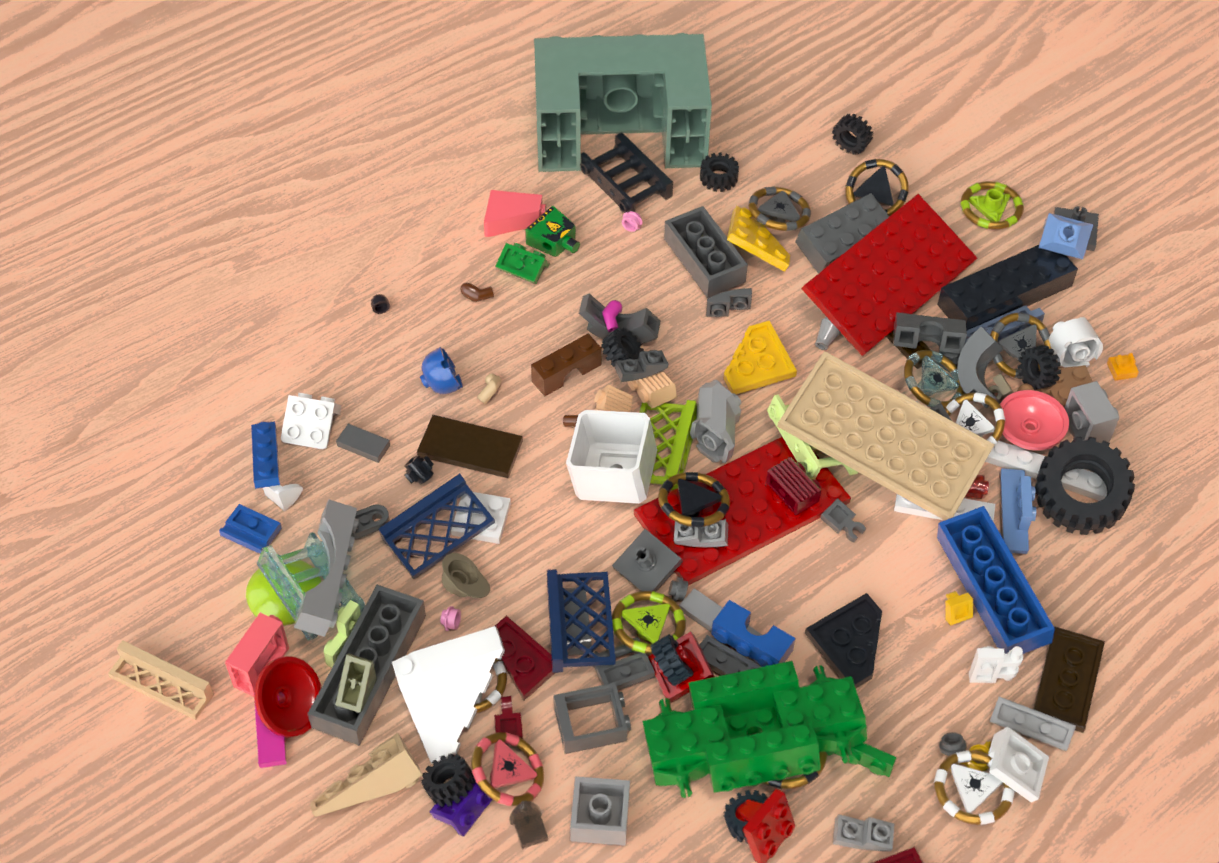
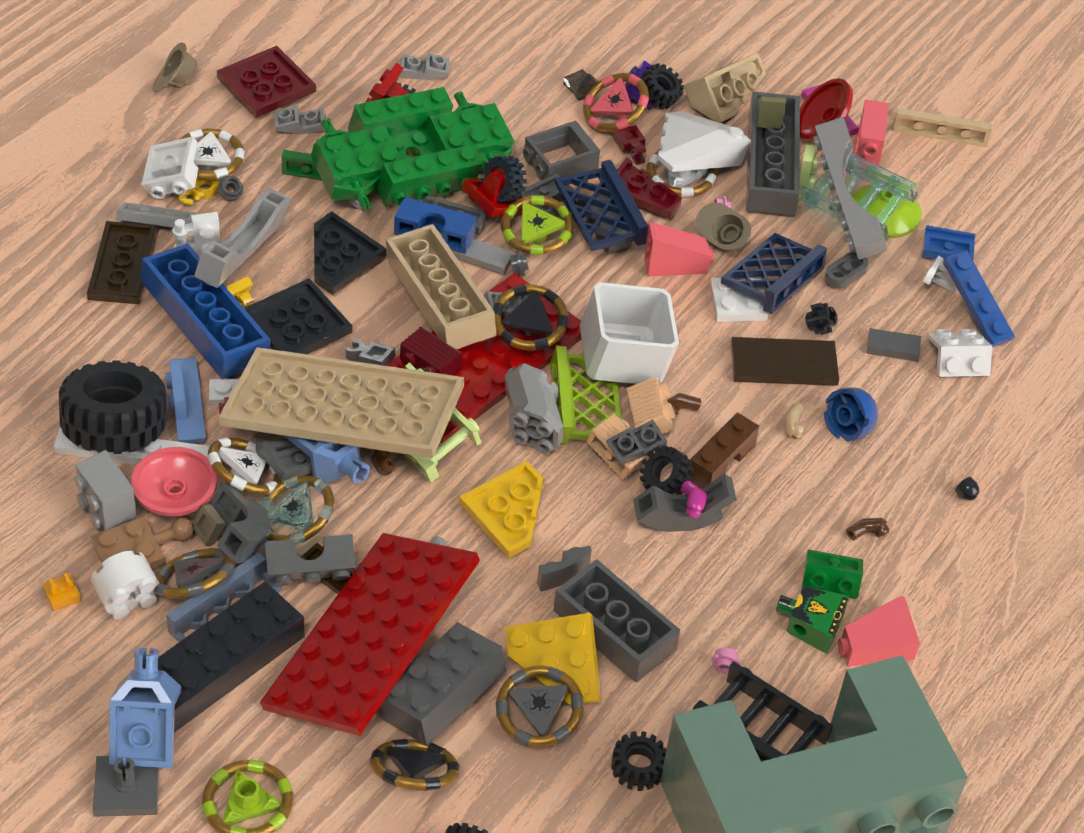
camera: 160 degrees right, 5 degrees down
(522, 560) = (675, 252): none -> coral slope
(600, 811) = (527, 88): light grey brick -> none
(647, 562) = (558, 275): dark grey tile -> none
(768, 553) = (441, 287): none -> tan brick
(905, 569) = (299, 319): none -> black plate
(932, 669) = (224, 257): none -> light grey arch
(1048, 370) = (170, 533): black tyre -> none

